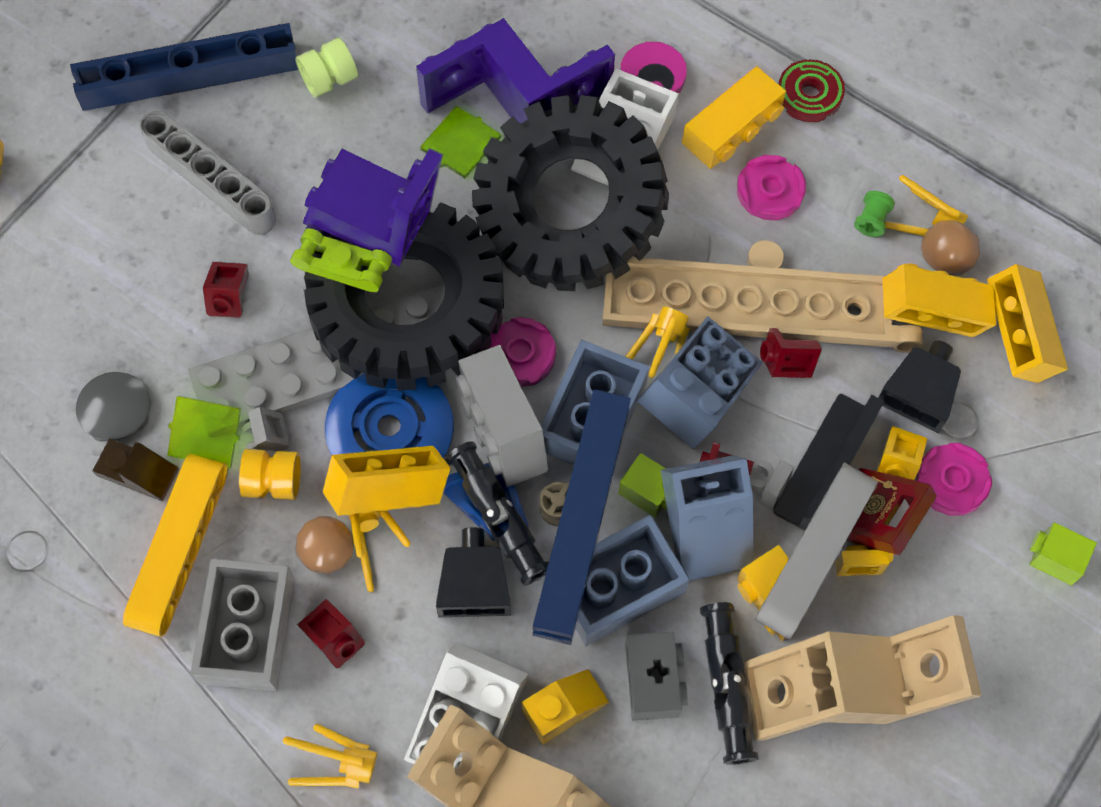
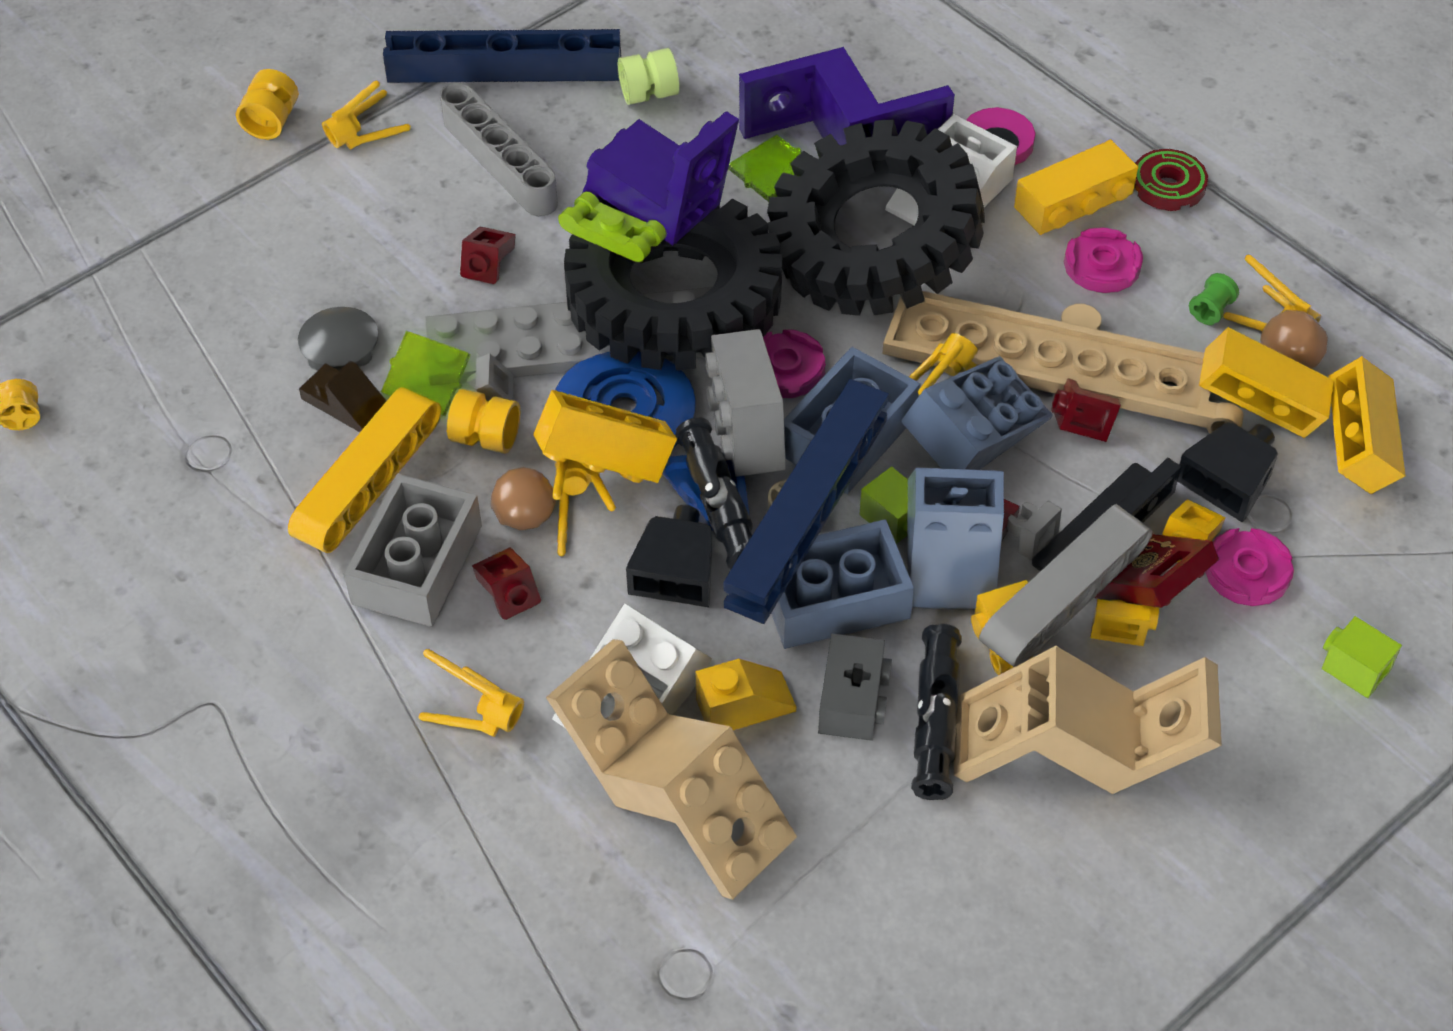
camera: 15 degrees right, 15 degrees down
(57, 174) = (344, 125): none -> yellow plant

